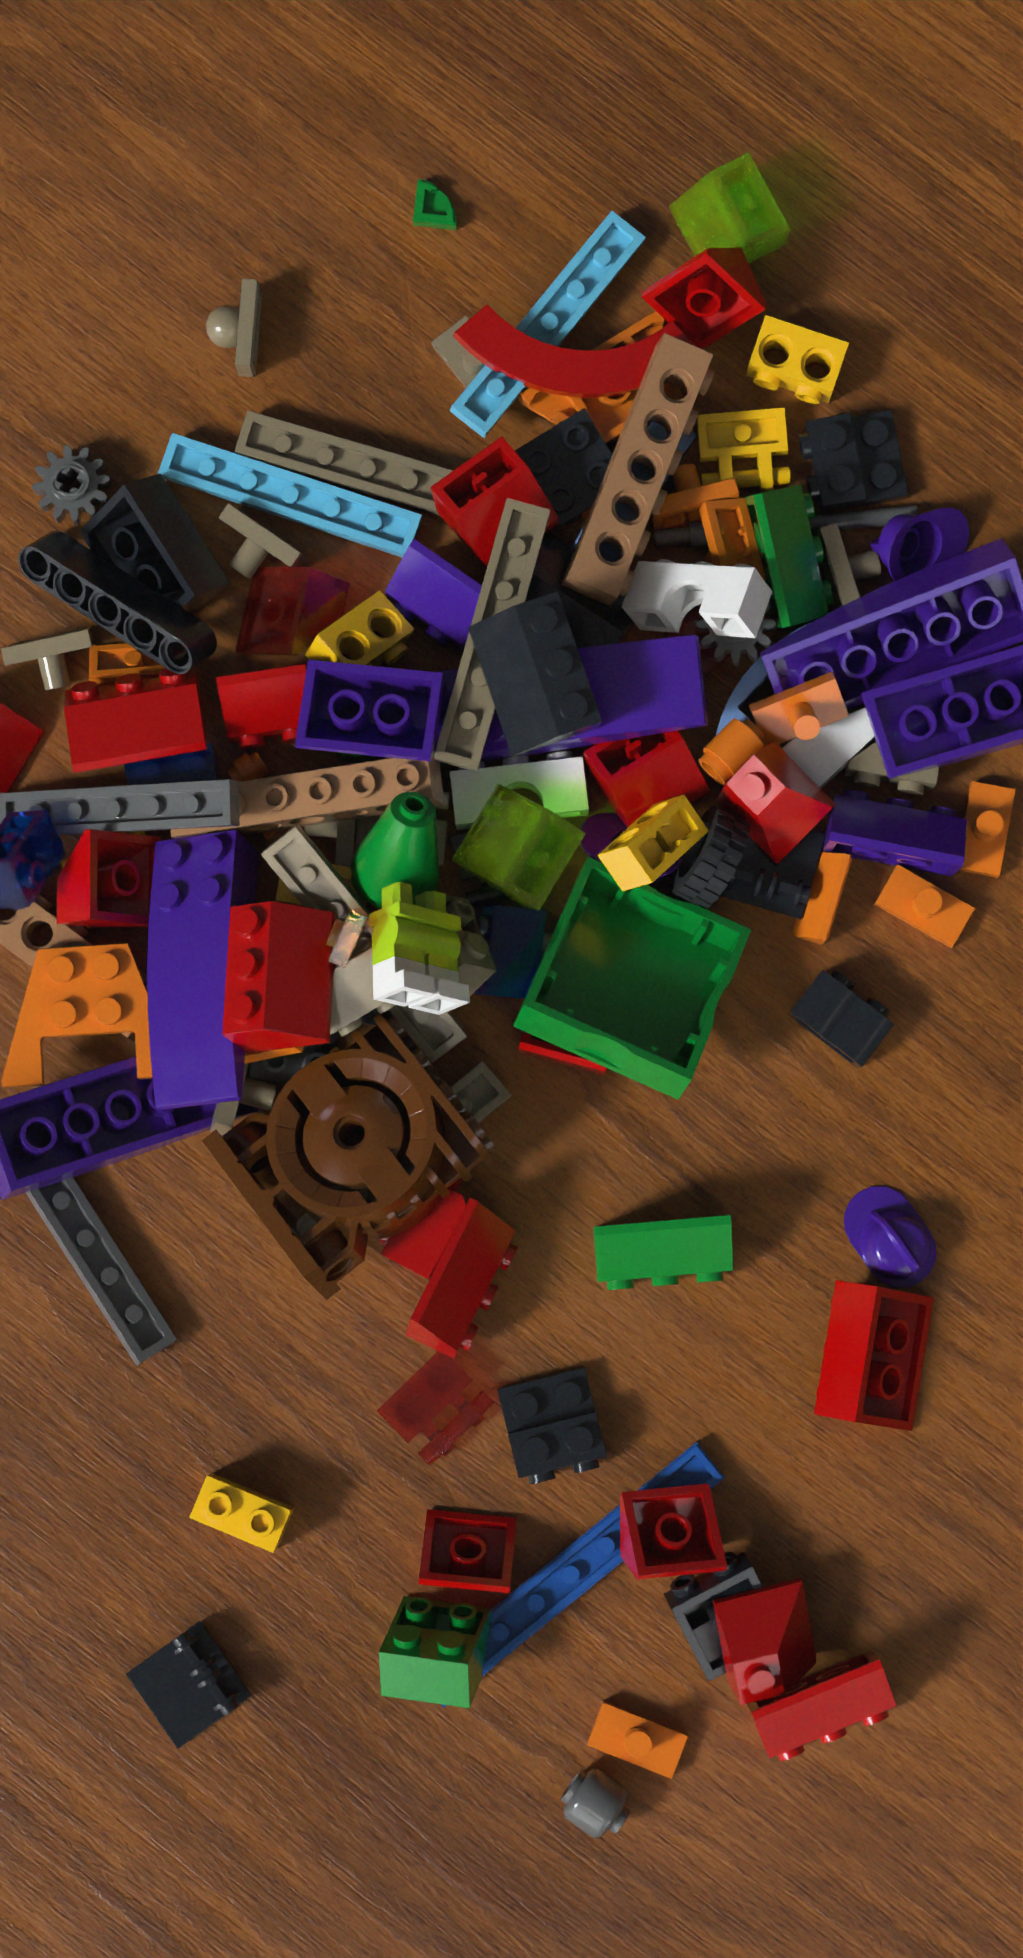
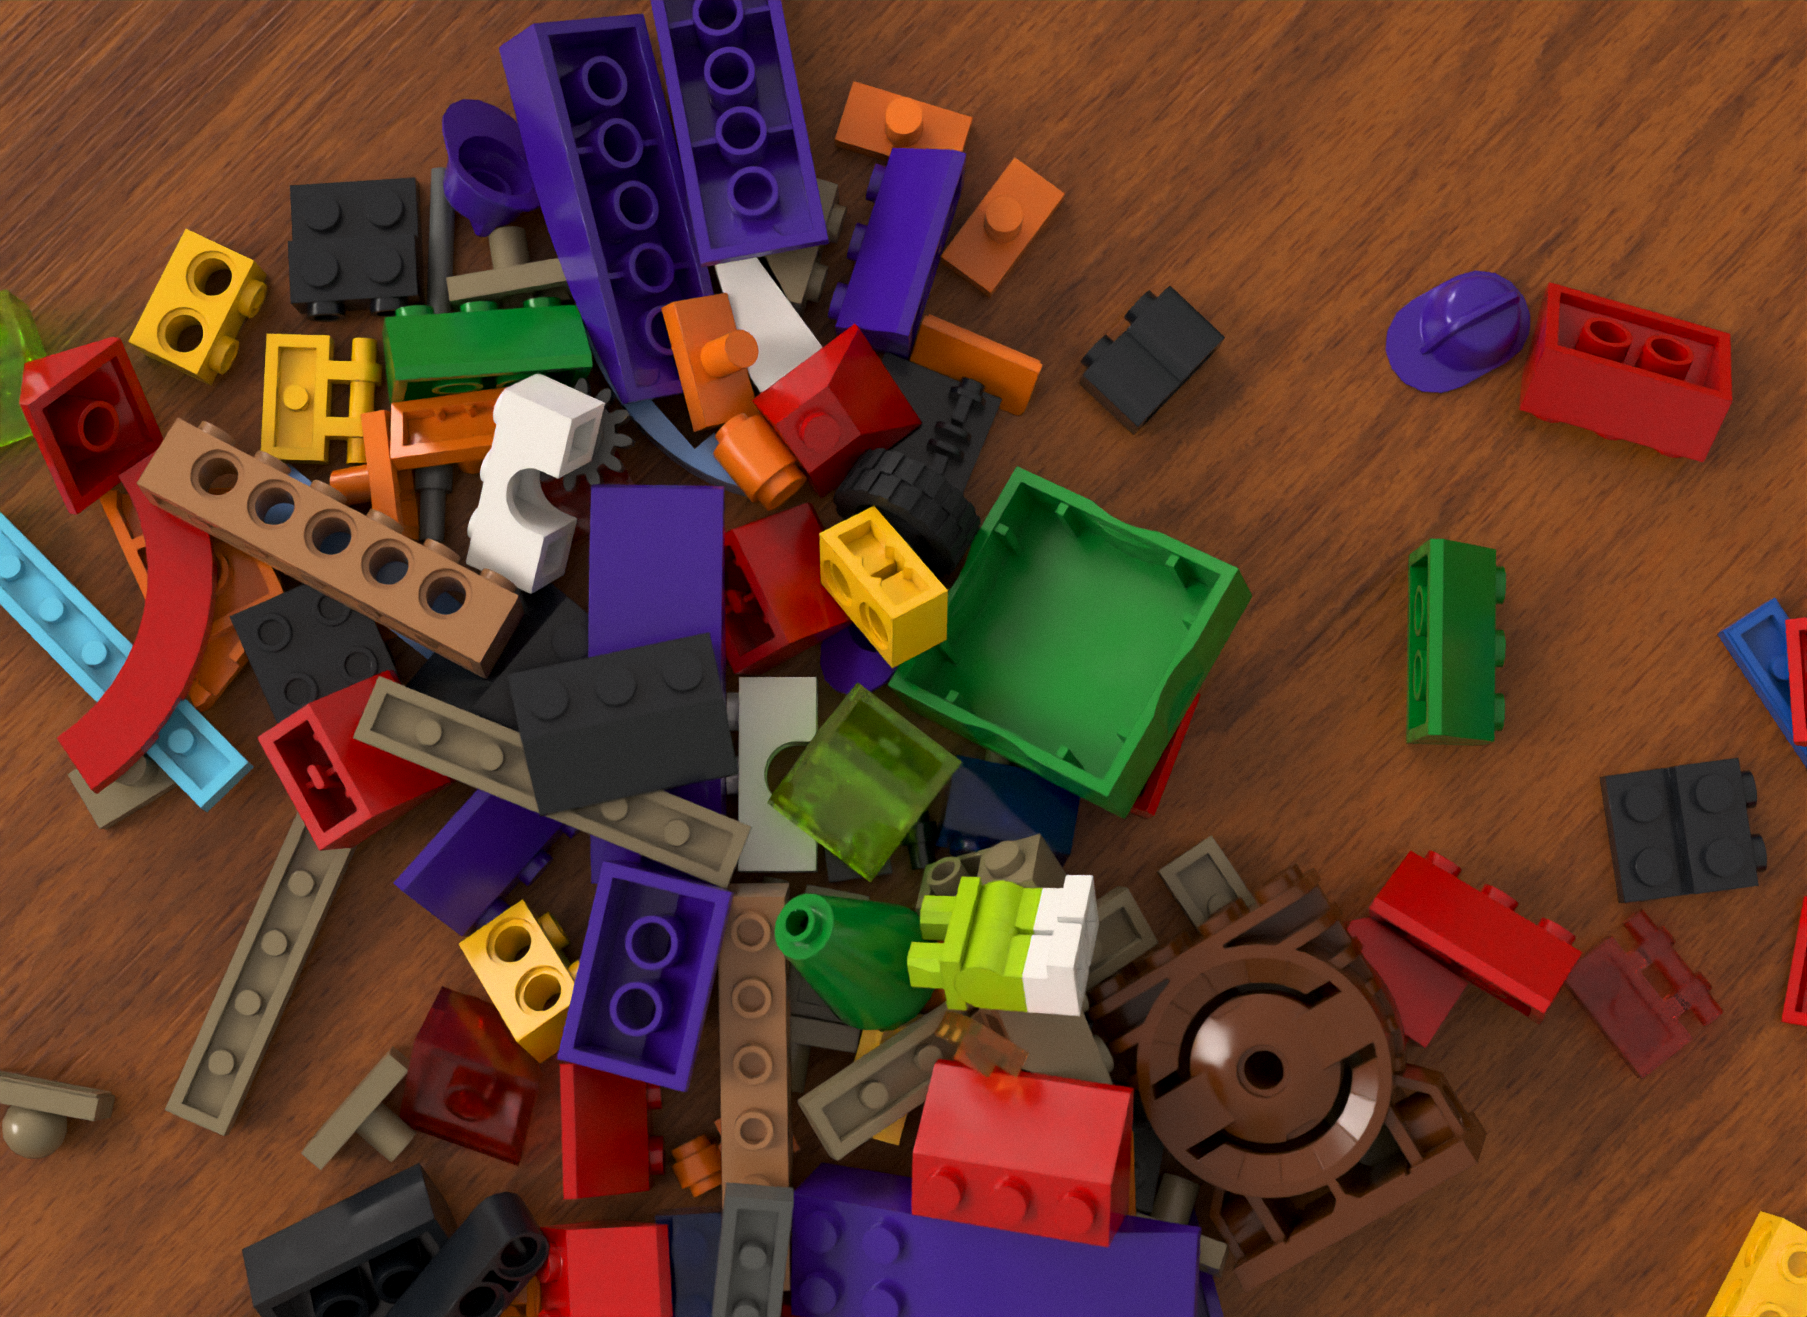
camera: 90 degrees left, 0 degrees up
(289, 495) = (299, 1062): medium azure plate -> none

